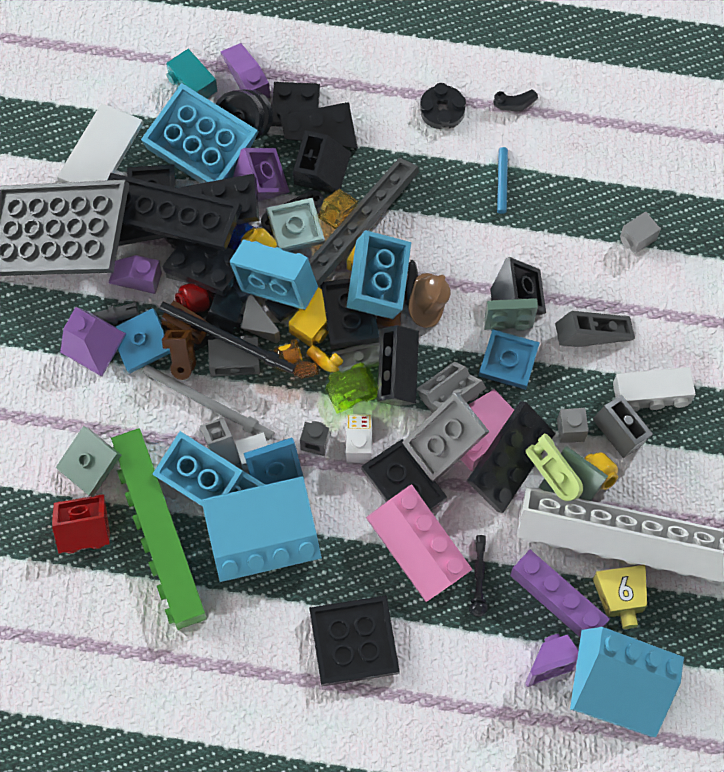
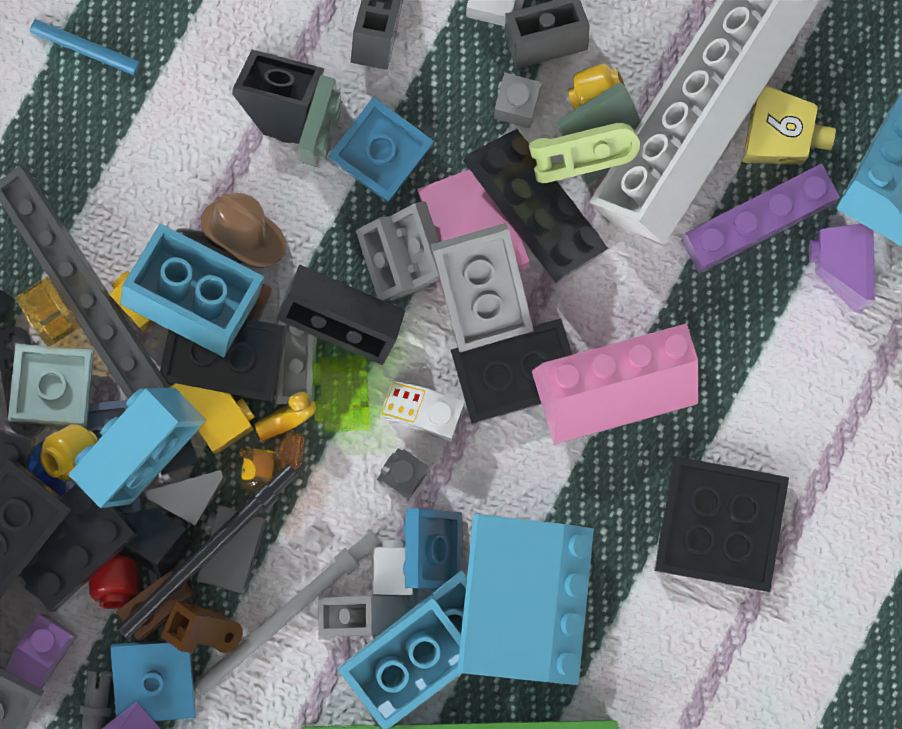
camera: 70 degrees left, 15 degrees up
(479, 607) = (730, 334): black piece -> none

